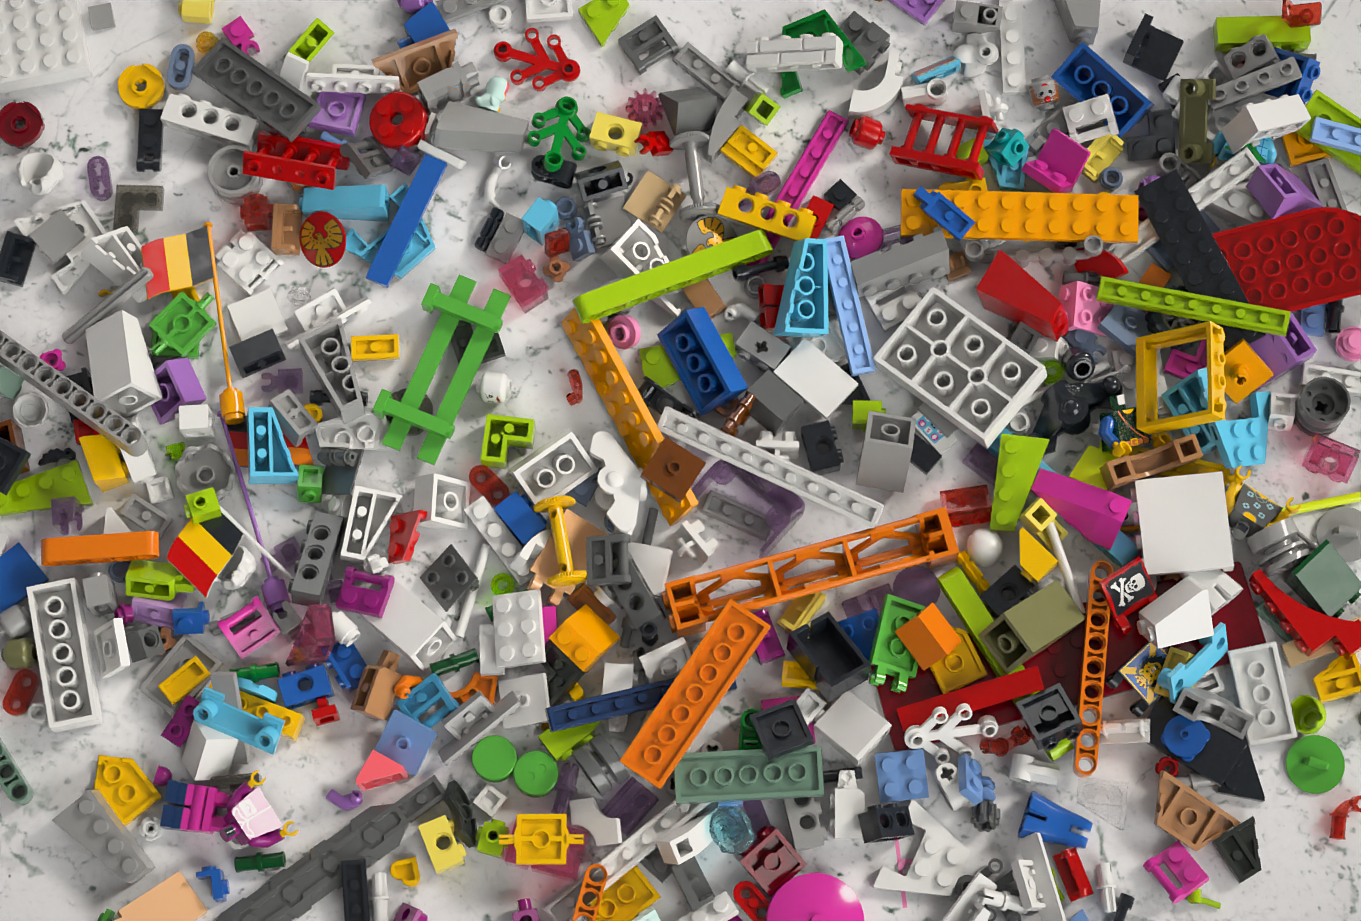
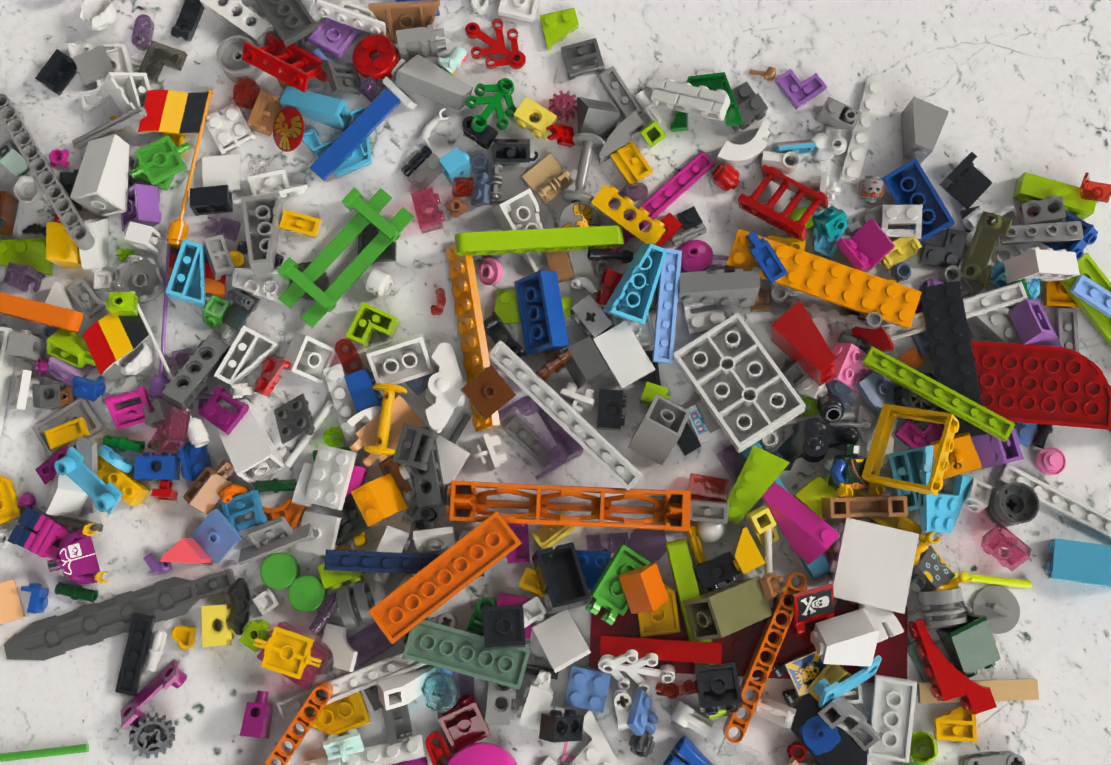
camera: 15 degrees right, 5 degrees up
(975, 526) = (709, 511): none -> light grey plate
(1074, 585) = (771, 585): none -> medium nougat tile

